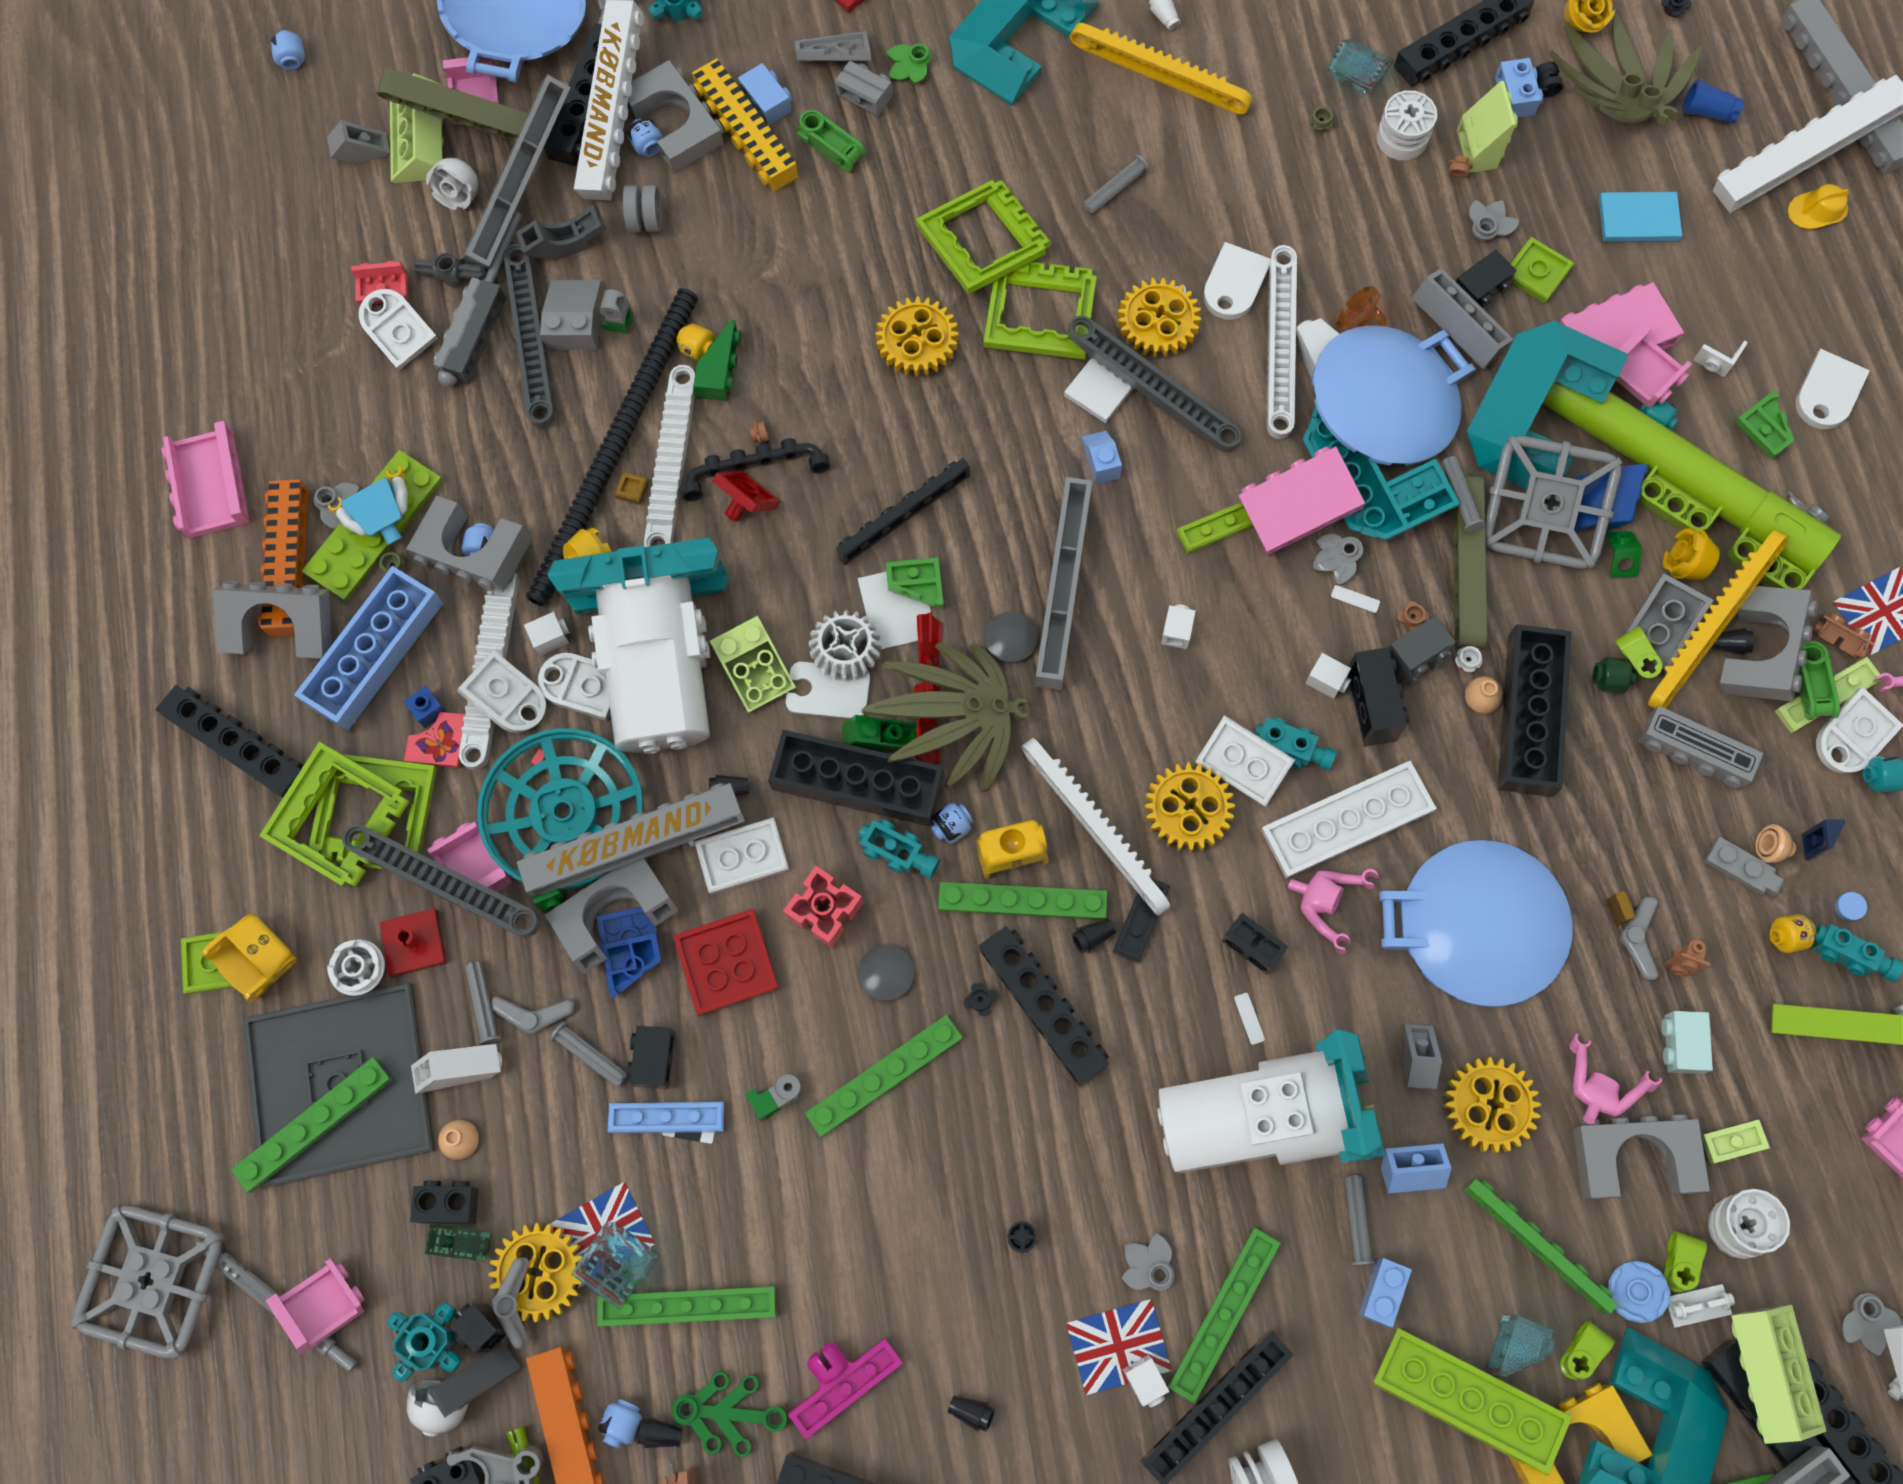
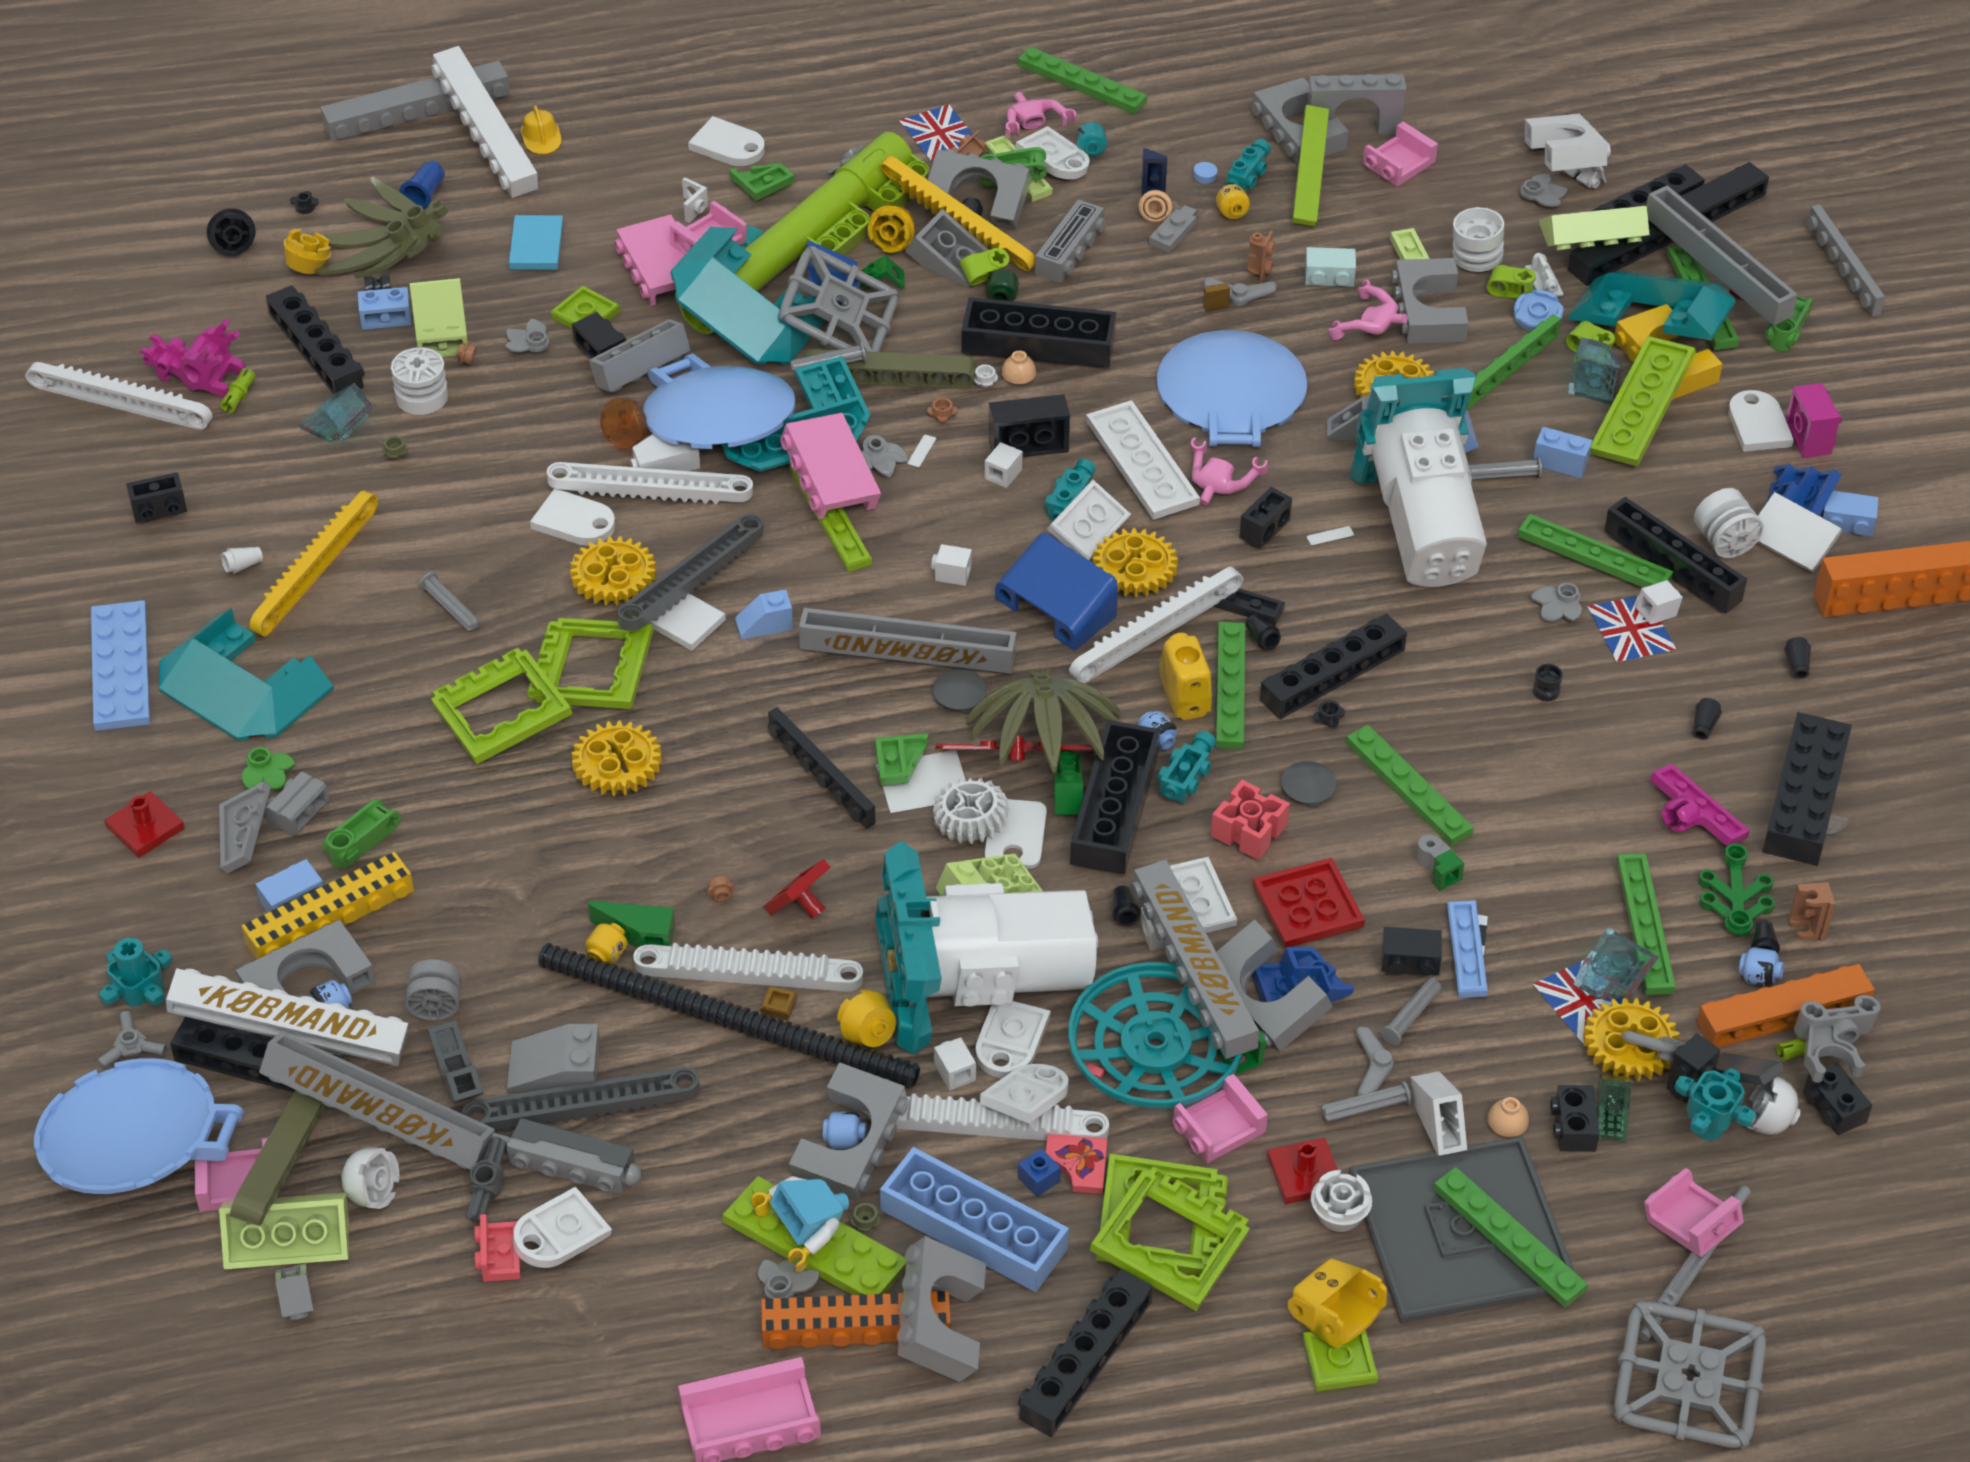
camera: 95 degrees left, 25 degrees down
(287, 50) = (137, 1378): light blue head -> none
(441, 881) = (1244, 1122): dark grey gear -> none
(616, 312) = (564, 1007): light grey leg -> none
(789, 450) = (752, 905): black bar -> none
(1134, 727) = (1062, 586): none -> blue windscreen
(1421, 650) = (977, 388): dark grey brick -> none

